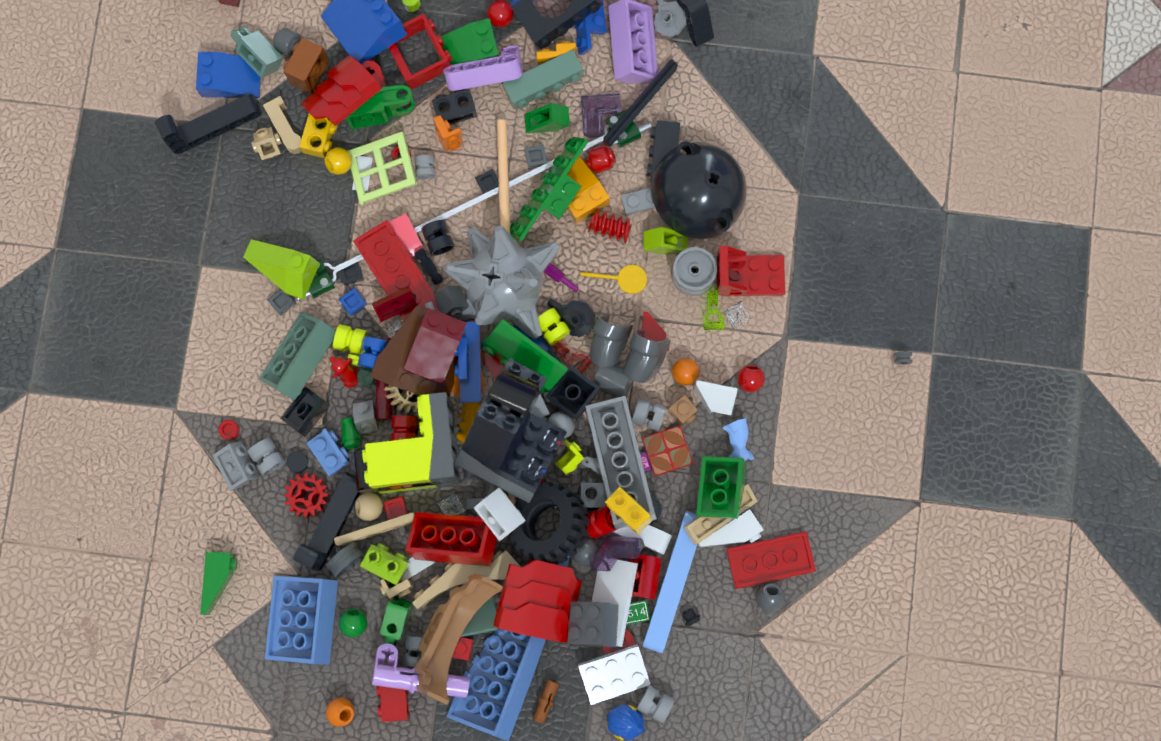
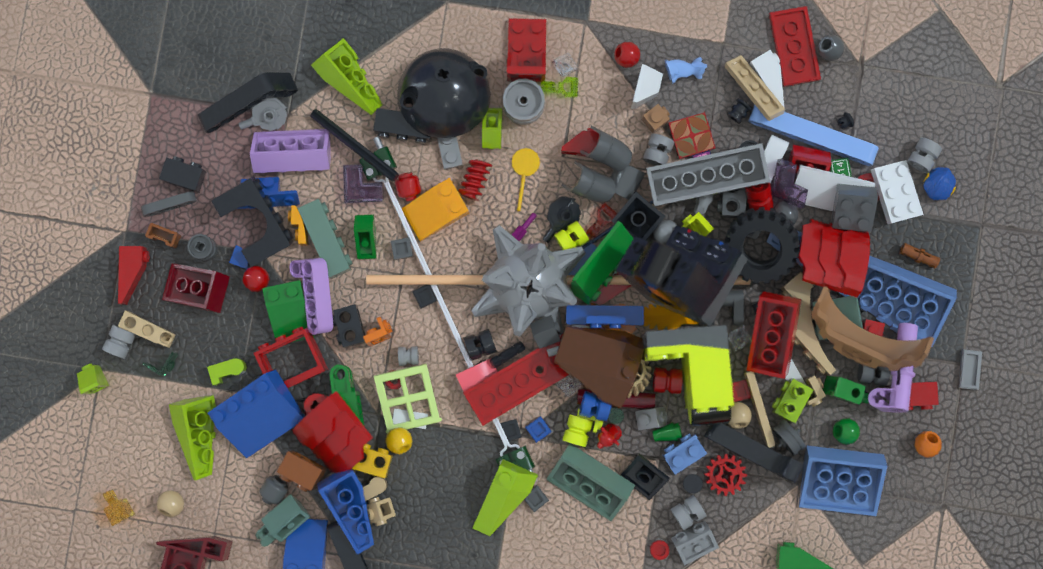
camera: 85 degrees left, 5 degrees up
(270, 109) = (347, 503): none -> blue wedge
(394, 304) = (548, 385): dark red plate -> none
(434, 346) = (596, 343): dark red slope -> none
(499, 514) = (757, 287): white brick -> none
(554, 192) = (440, 230): green bracket -> none
(628, 511) = (760, 165): yellow brick -> none
(685, 371) = (619, 114): orange piece -> none
(691, 498) = (739, 111): none -> black bush
(716, 91) = (342, 71): none -> lime wedge
(721, 487) = (732, 85): green slope -> none

